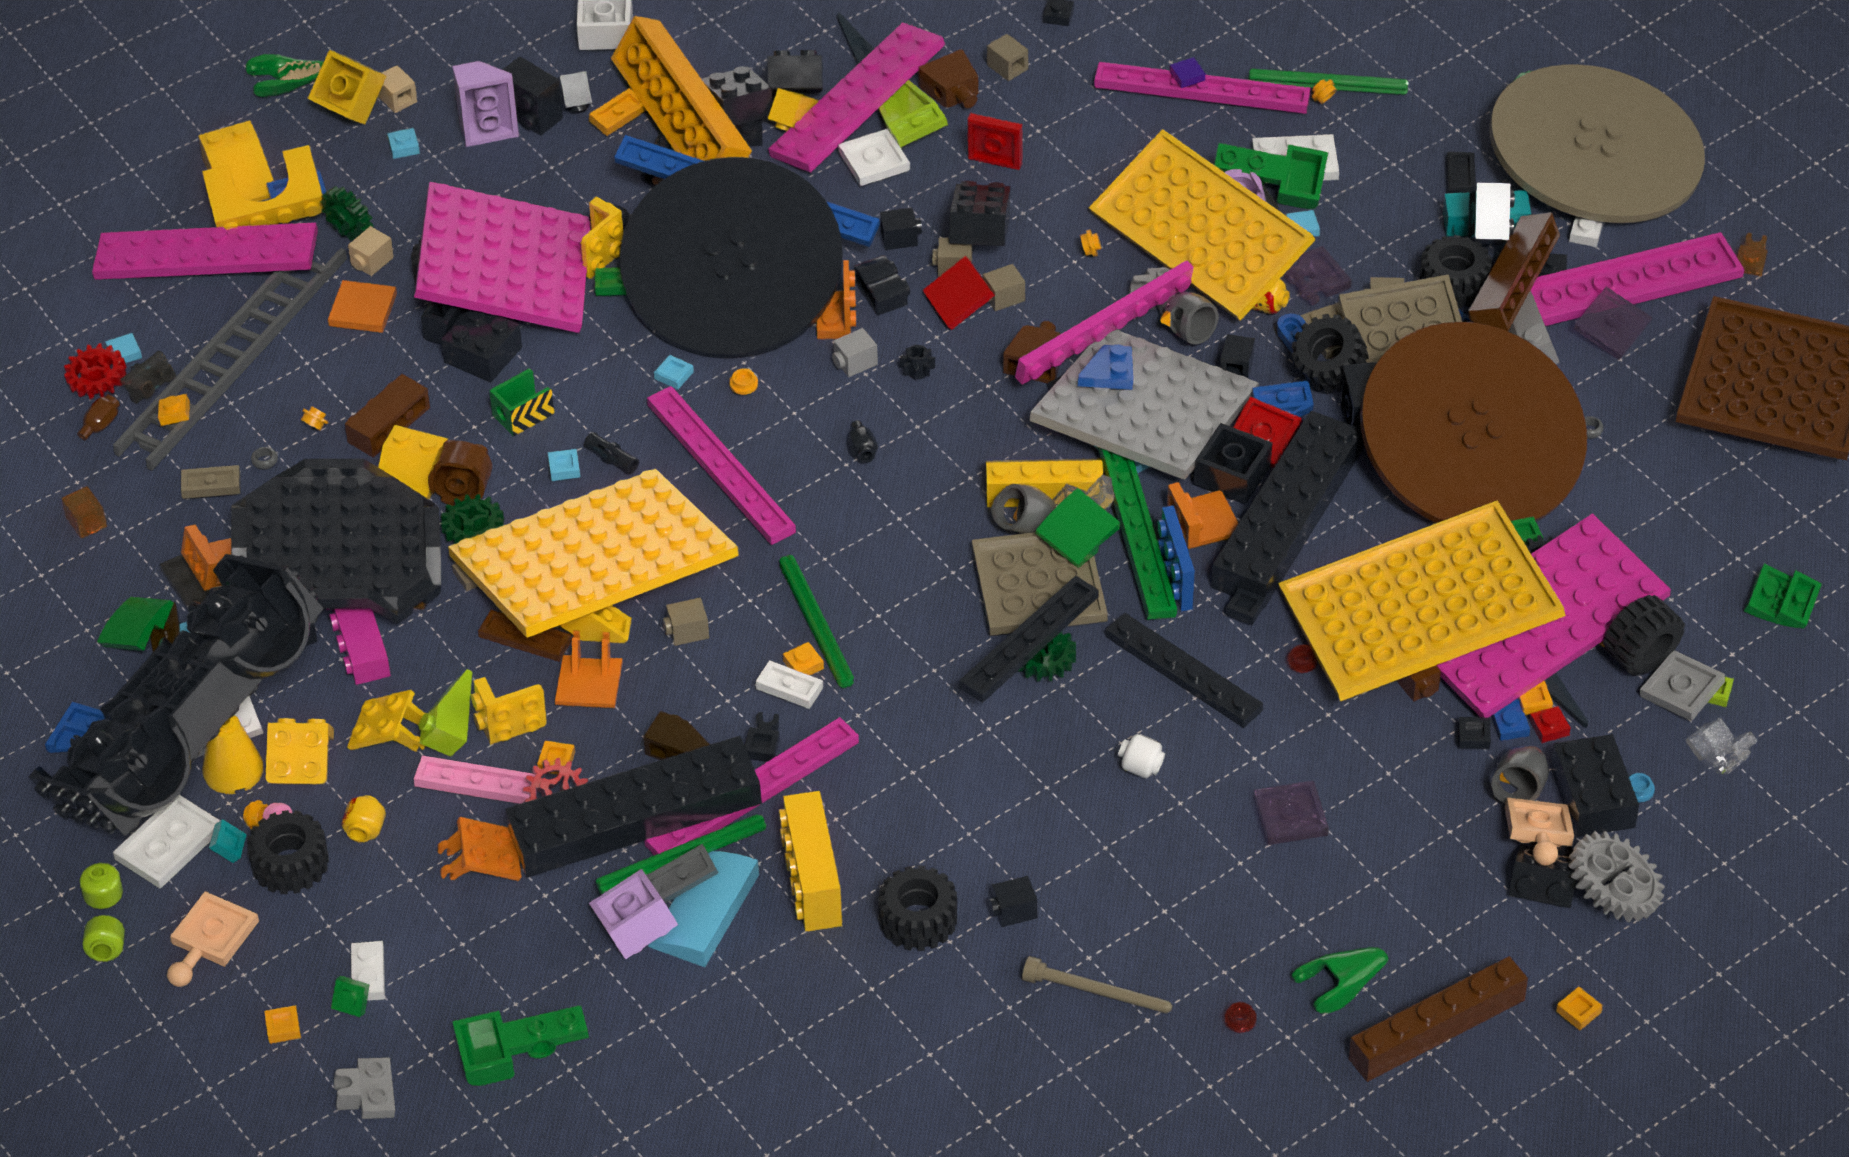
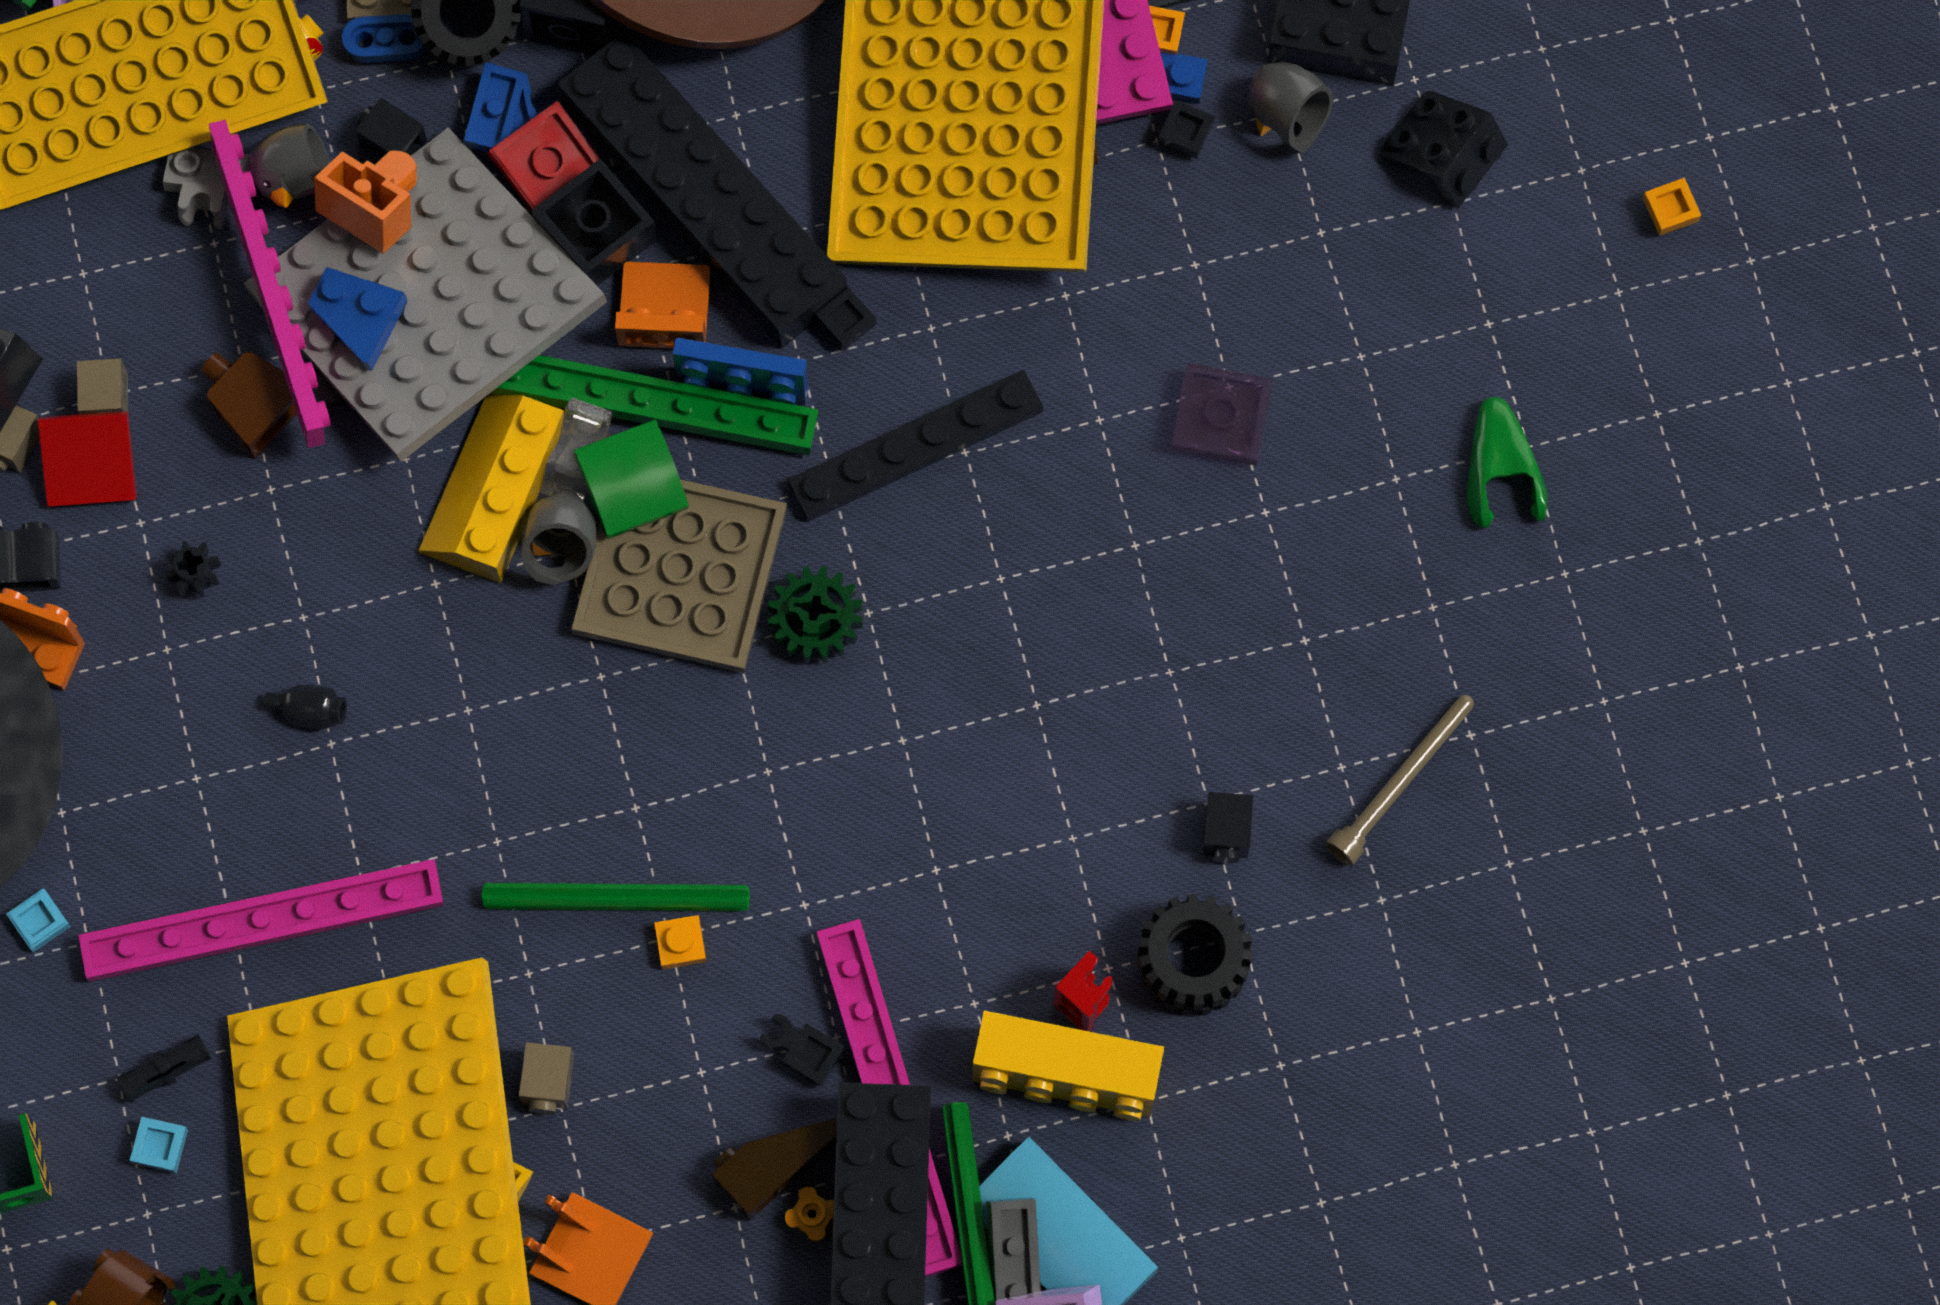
camera: 70 degrees left, 25 degrees up
(743, 381) = (111, 828): light orange plate -> none
(789, 684) = (721, 977): white plate -> none
(855, 352) = (133, 649): light grey brick -> none
(863, 852) = (1080, 997): none -> red hinge
(1028, 639) = (813, 625): black plate -> none
(1090, 243) = (71, 237): light orange plate -> none
(1141, 756) = (1053, 562): white head -> none
(1185, 348) = (368, 197): none -> orange brick
(1243, 1011) = (1523, 606): clear red plate -> none
(1302, 659) = (963, 276): clear red plate -> none
(1438, 1018) = (1628, 381): reddish brown brick -> none
(1541, 823) = (1380, 116): light nougat plate -> none
(1550, 724) = (1205, 31): red plate -> none
(1631, 892) = (1503, 67): light grey gear -> none

